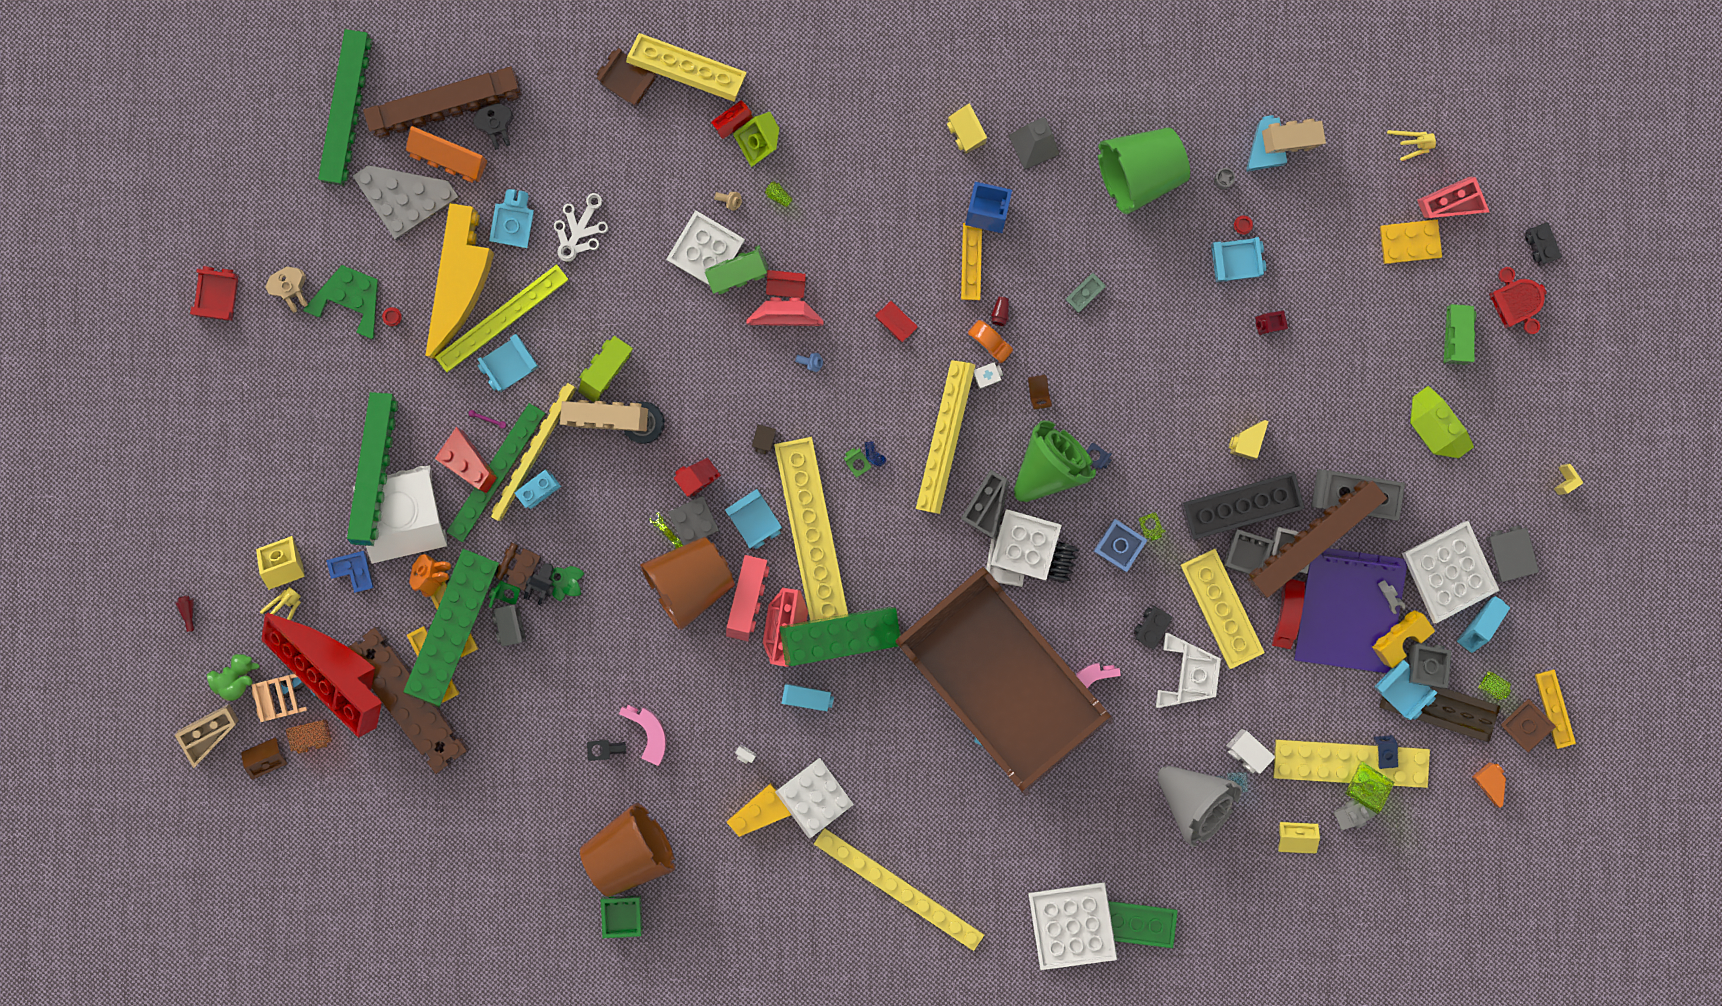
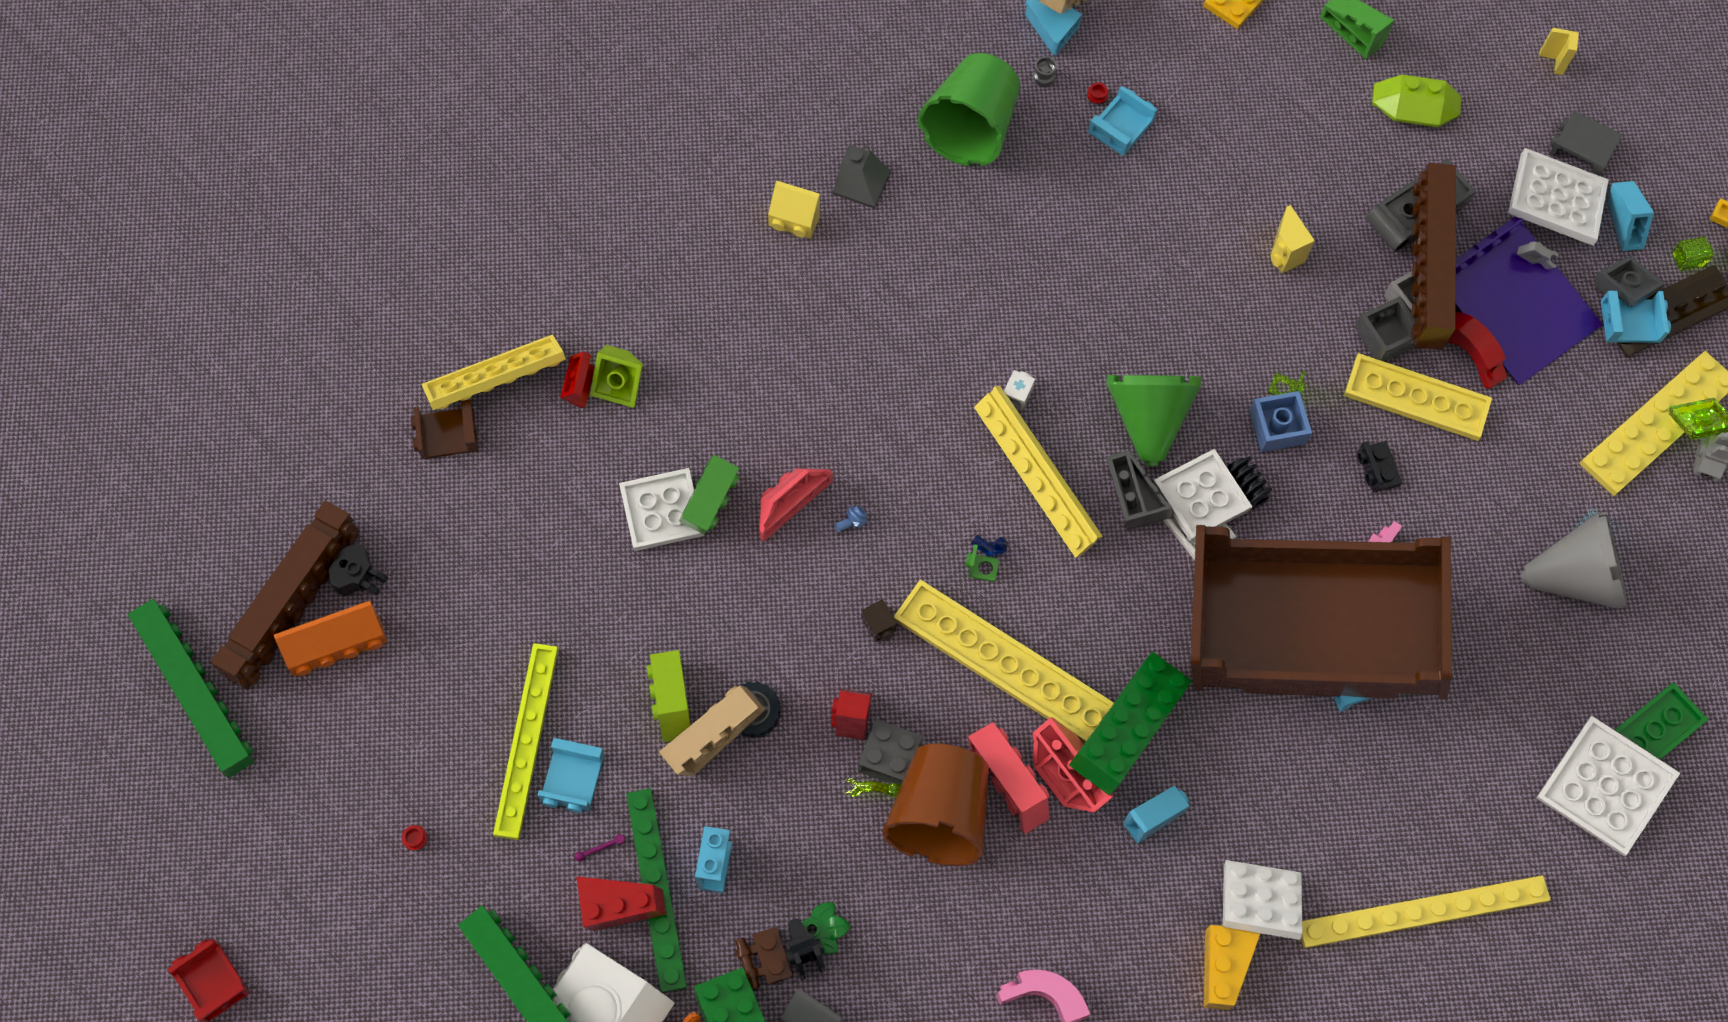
camera: 45 degrees left, 20 degrees down
(289, 287) = (282, 901): tan hinge -> none
(352, 291) = (350, 851): green wing -> none
(403, 198) = (325, 720): light grey plate -> none
(460, 277) = (449, 733): yellow slope -> none
(498, 593) = (768, 1002): green bracket -> none
(512, 220) = (453, 643): medium azure plate -> none
(529, 458) = (676, 845): light yellow plate -> none
(579, 231) = (525, 598): white plant -> none
(733, 199) = (645, 447): tan plate -> none
(745, 754) = (1158, 920): white plate -> none
(754, 519) = (942, 702): medium azure panel -> none
(778, 194) = (680, 406): clear neon green cone -> none
(785, 284) = (762, 473): red panel -> none
(896, 321) = (893, 420): red panel -> none
(971, 263) = (907, 313): yellow plate -> none
(988, 207) = (877, 253): blue piece -> none
(990, 341) = (990, 356): orange animal -> none
(1000, 313) = (975, 331): dark red cone -> none
(1039, 391) = (1075, 364): reddish brown bracket -> none
(1085, 292) = (1028, 253): sand green plate -> none
(1104, 459) = (1189, 368): dark blue bracket -> none
(1197, 674) = (1458, 467): white wing -> none
(1242, 505) = (1341, 298): black brick -> none
(1250, 751) = (1576, 485): white piece -> none
(1271, 322) = (1201, 144): dark red bracket -> none
(1298, 837) = (1693, 522): light yellow panel -> none
(1387, 752) = (1679, 381): dark blue bracket -> none
(1390, 647) = (1582, 295): yellow arch -> none

